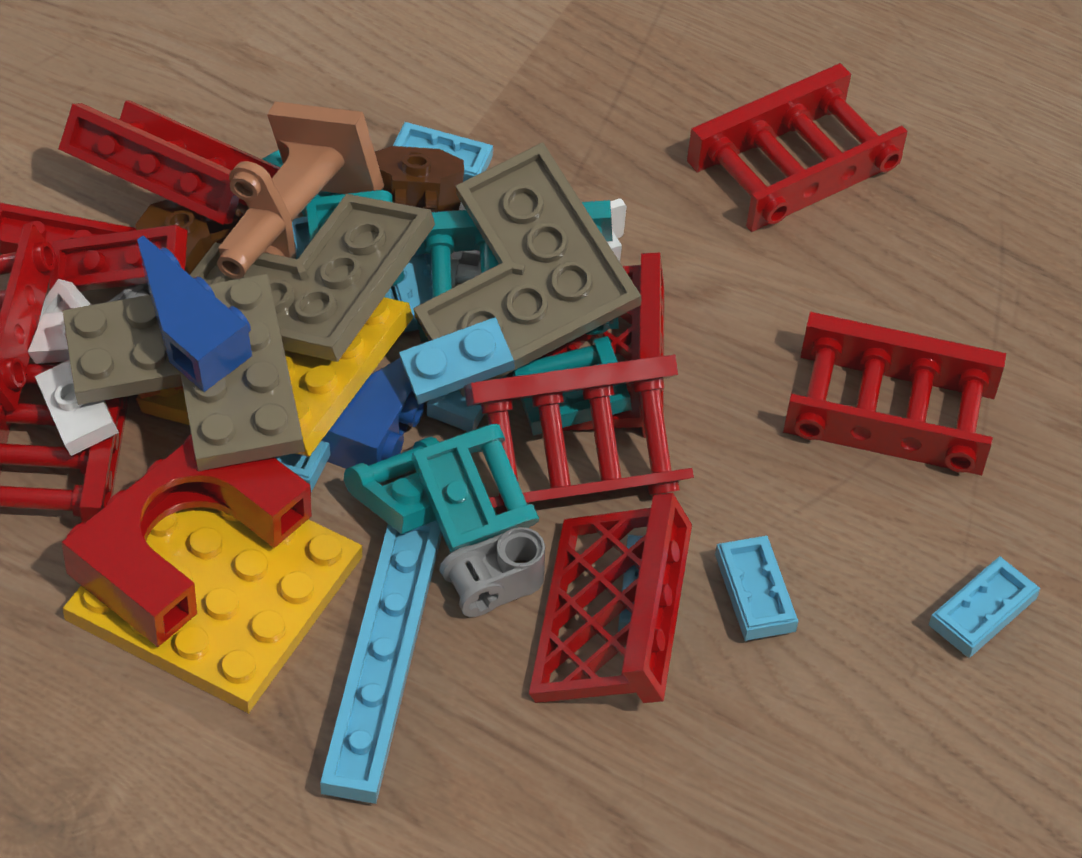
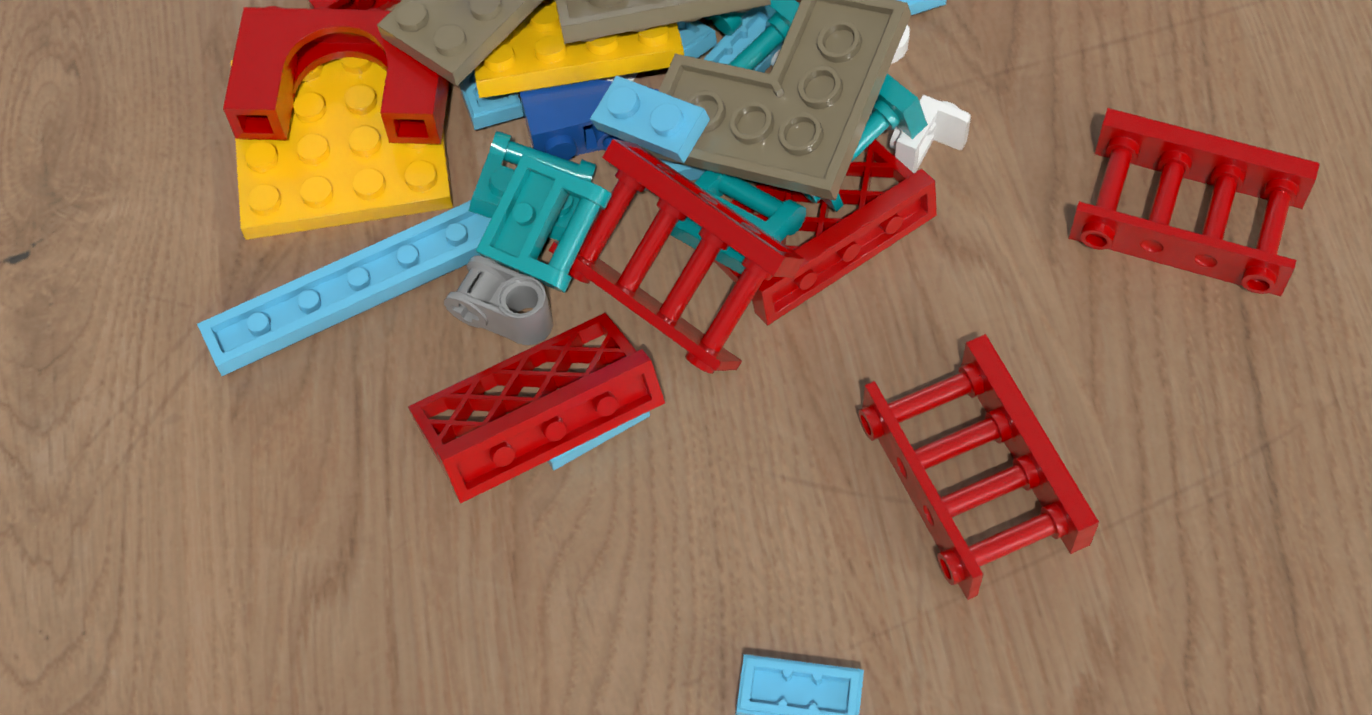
camera: 60 degrees right, 10 degrees up
(756, 588) = (656, 498): medium azure plate -> none

